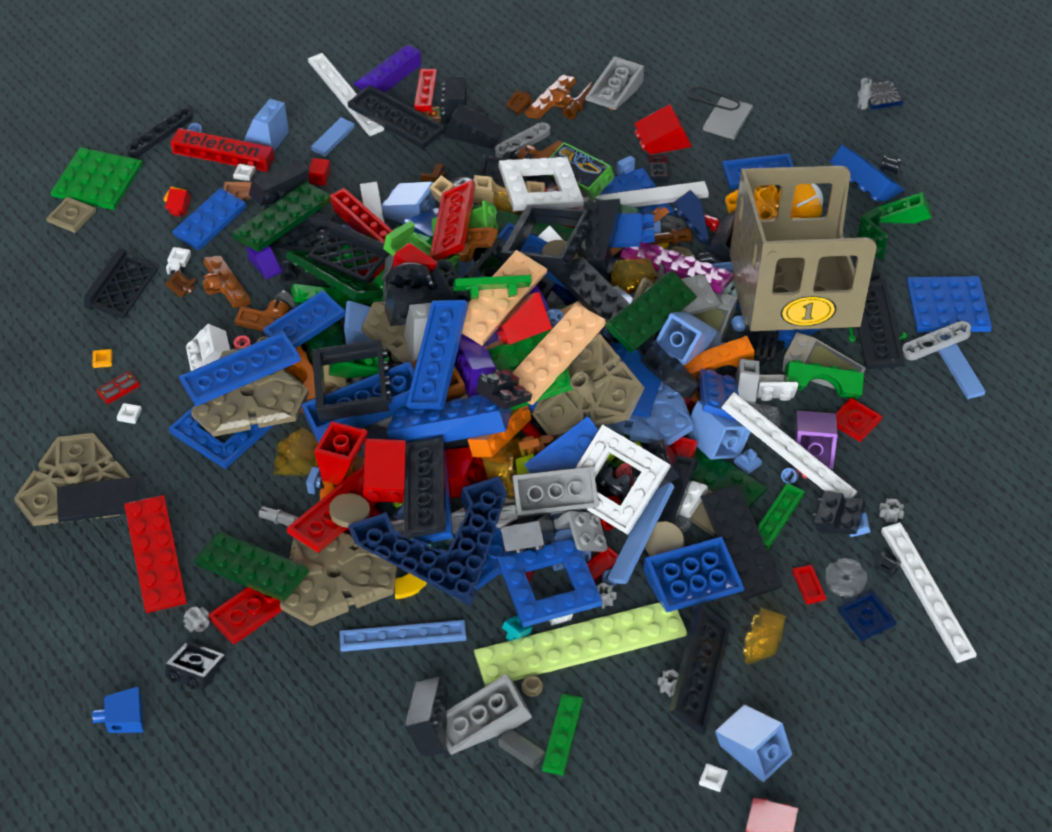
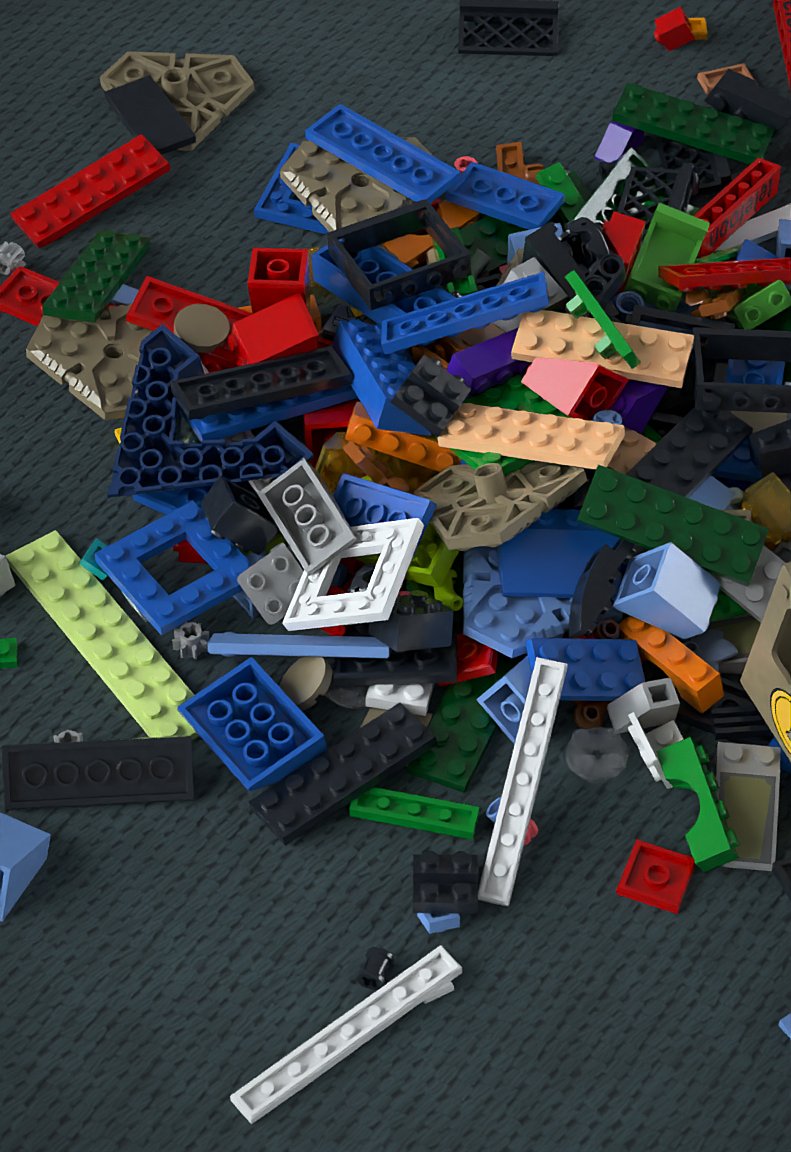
camera: 70 degrees right, 0 degrees up
(102, 358) = (381, 55): light orange tile -> none
(117, 387) = (340, 83): tile -> none
(129, 413) = (305, 106): white tile -> none
(177, 258) = (578, 64): white plate -> none
(180, 284) = (535, 79): reddish brown bracket -> none
(206, 346) = (441, 134): white slope -> none
(209, 219) = (666, 69): blue plate -> none
(223, 281) = (562, 117): dark orange plate -> none
(244, 172) = (775, 77): white tile -> none
(277, 516) = (196, 282): light grey axle -> none
(402, 635) = (58, 458): medium blue tile -> none
(532, 686) = (20, 604): dark tan plate -> none
(602, 562) = (245, 623): red tile -> none
(748, 461) = (501, 754): medium blue tile -> none
(764, 636) = (171, 830): clear yellow slope -> none
(808, 584) = (306, 879): red tile -> none
(817, 435) = (583, 822): medium lavender slope -> none
(845, 587) = (332, 937): clear plate -> none
(867, 616) = (273, 964): clear blue tile -> none
(891, 510) = (487, 961): light grey gear -> none

